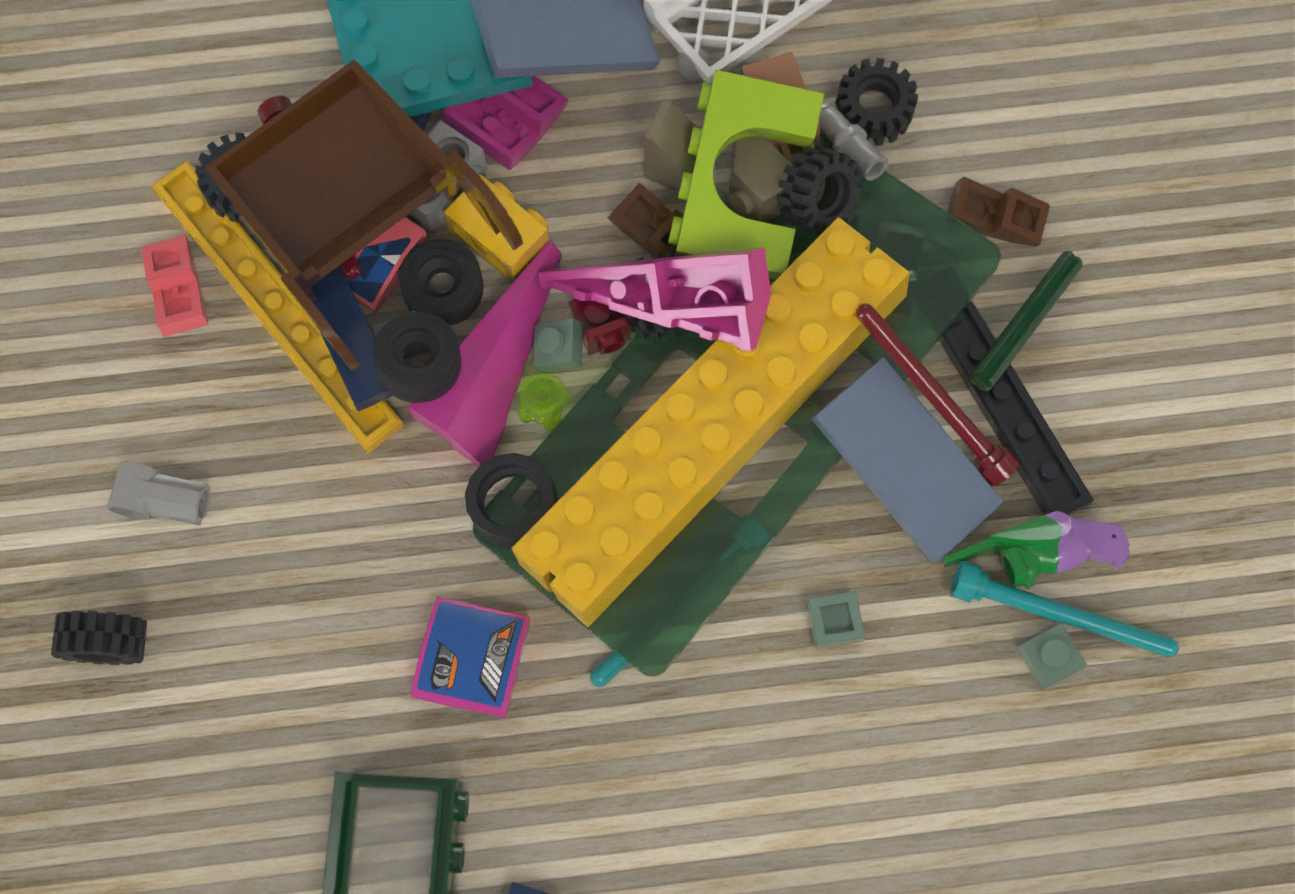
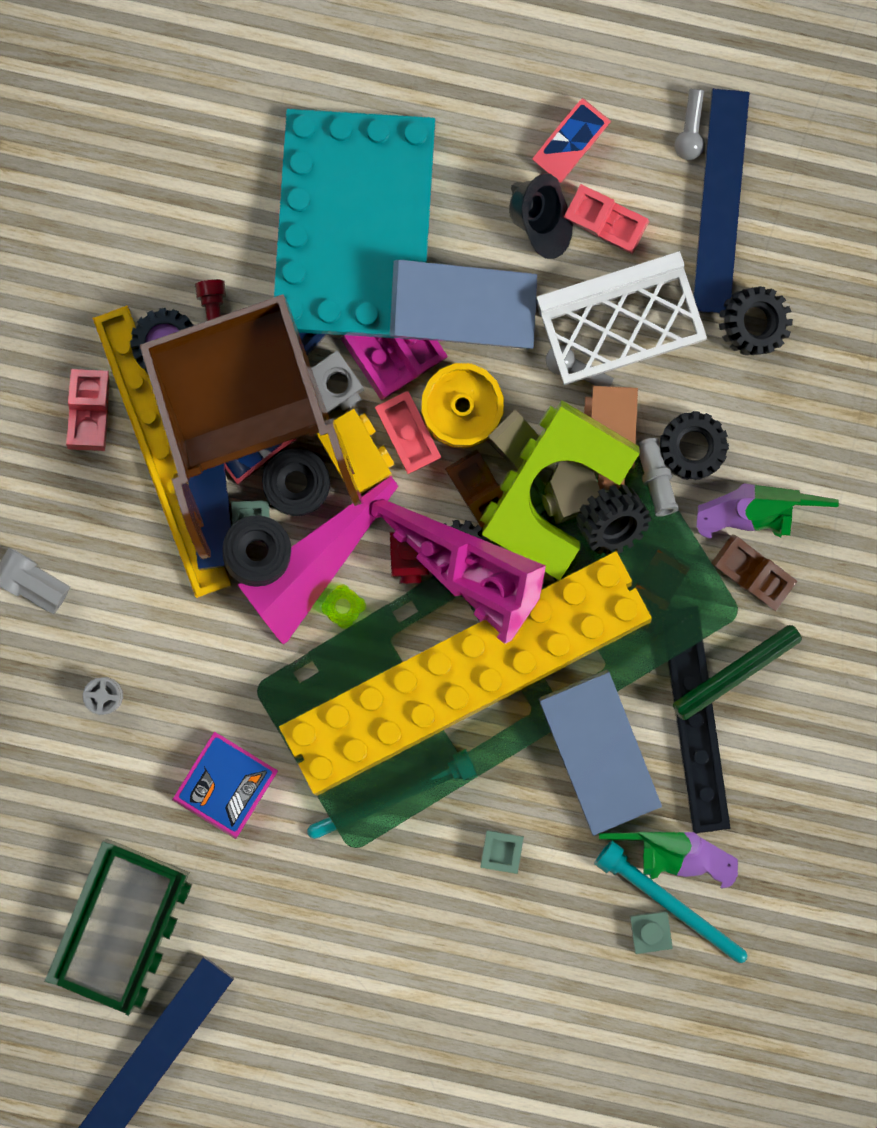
camera: 15 degrees right, 15 degrees up
(282, 590) = (96, 695): none -> light grey wheel
(494, 471) = (270, 663): black tyre -> none
(551, 189) = (408, 432): none -> coral plate
(558, 345) = (369, 566): sand green plate -> none
(601, 135) = (462, 428): none -> yellow wheel
(970, 145) = (756, 509): none -> animal
(994, 462) = (666, 774): dark red piece -> none

